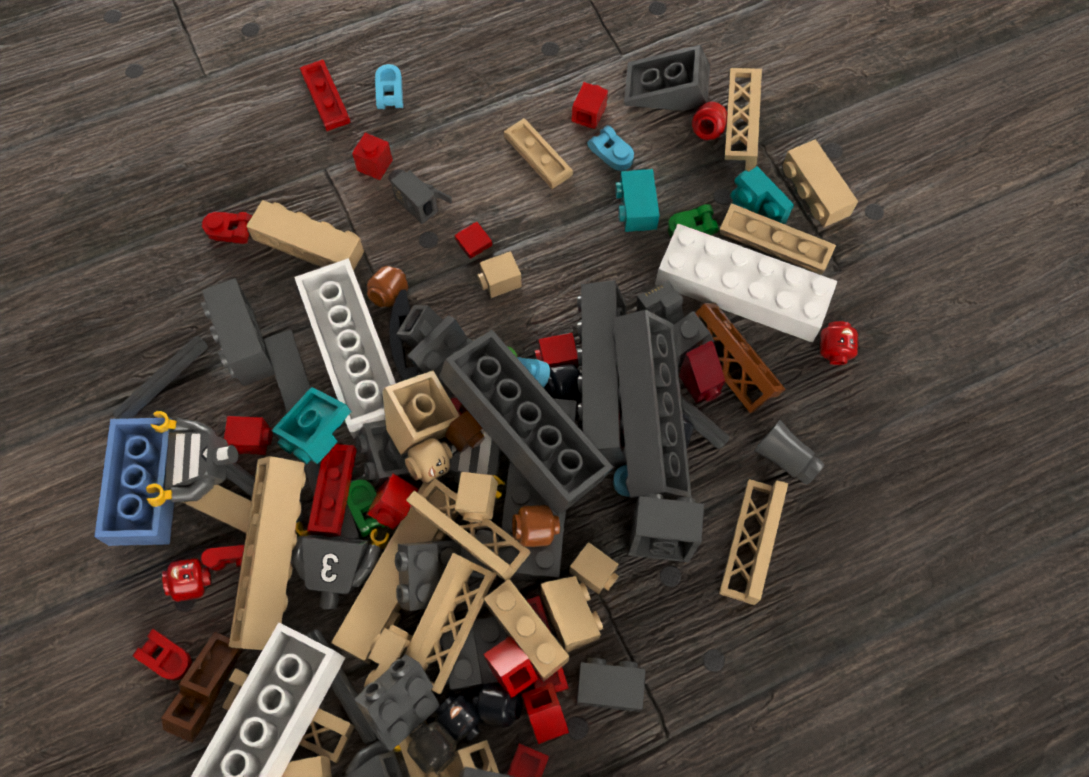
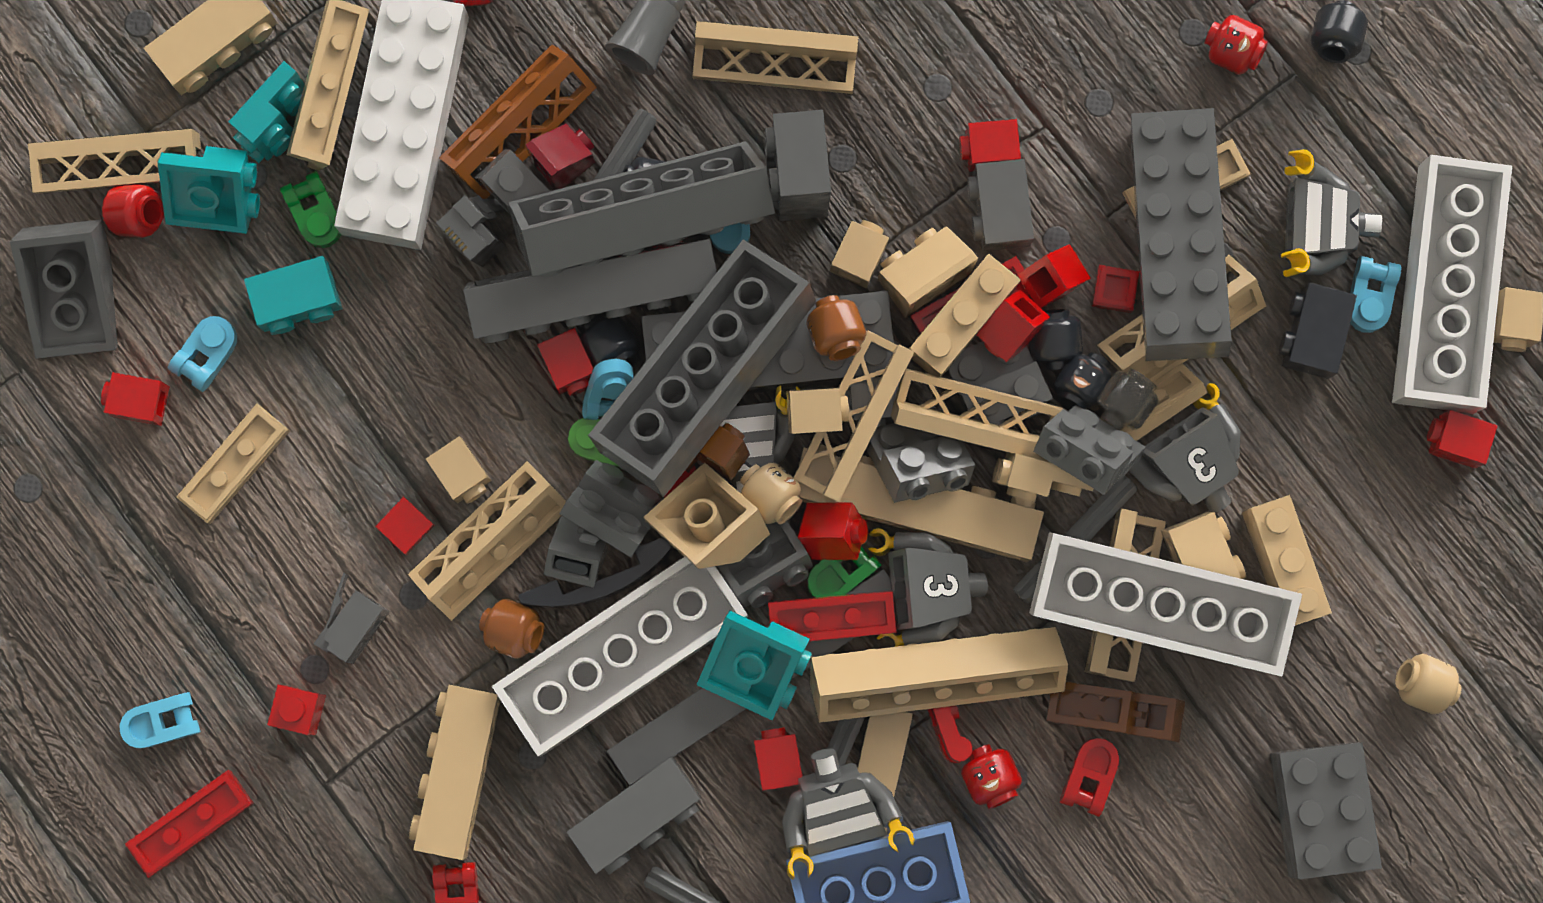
camera: 105 degrees left, 15 degrees up
(445, 285) = (492, 545): none -> tan fence
(660, 688) = (990, 142): none -> red brick
(715, 159) = (209, 189): none -> teal plate

